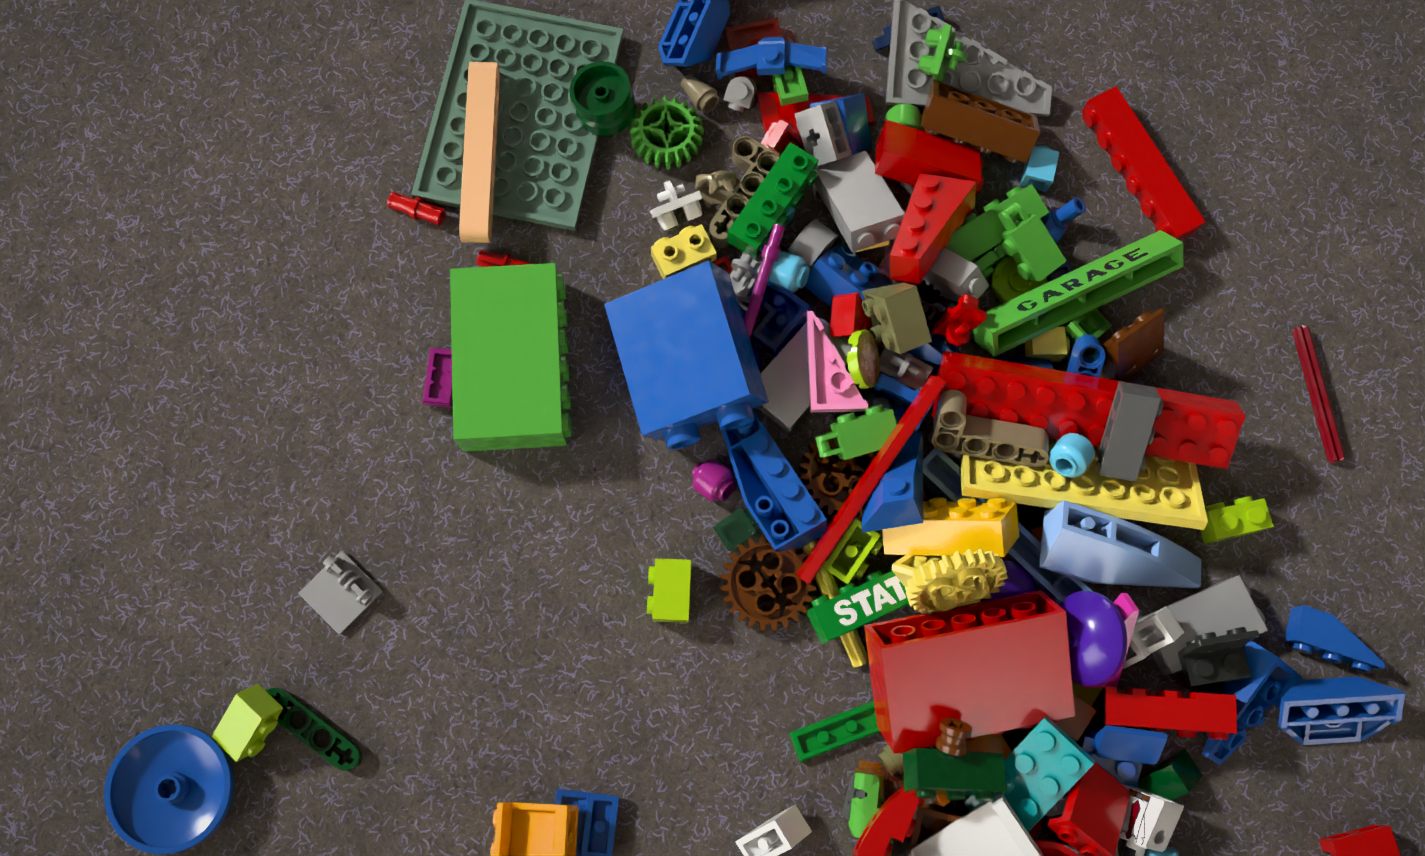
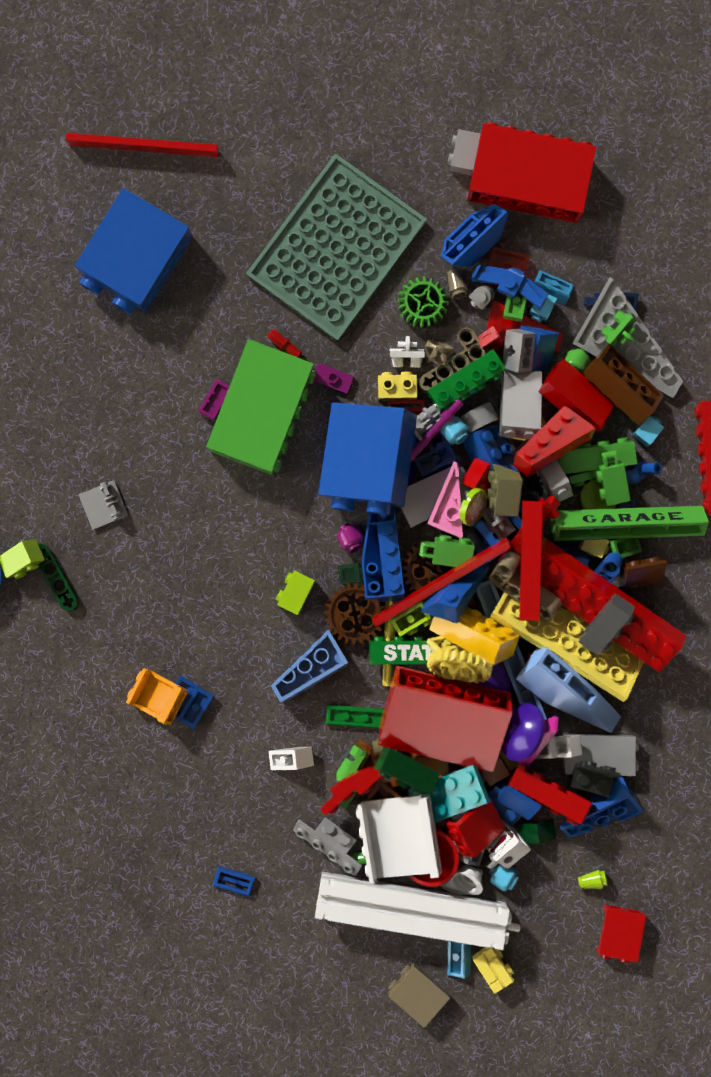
camera: 25 degrees right, 10 degrees up
(199, 91) = (142, 145): none -> red tile
(241, 229) = (132, 252): none -> blue brick
(416, 208) = (245, 283): red pin -> none
(479, 152) = (299, 265): light nougat beam -> none
(591, 281) = (333, 378): none -> magenta plate
(603, 98) = (391, 265): dark green wheel -> none
(742, 689) = (310, 668): none -> medium blue wedge
(829, 82) = (543, 314): none -> medium azure brick
(839, 45) = (554, 286): none -> dark azure slope
(953, 736) = (415, 751): reddish brown wheel -> none
(981, 390) = (530, 560): none -> red tile
(1071, 455) = (567, 622): medium azure head -> none
(1236, 520) = (651, 704): lime brick -> none
(1287, 810) = (593, 880): none -> lime cone
(1323, 633) = (670, 793): blue slope -> none
(1338, 710) = (652, 838): blue wedge -> none

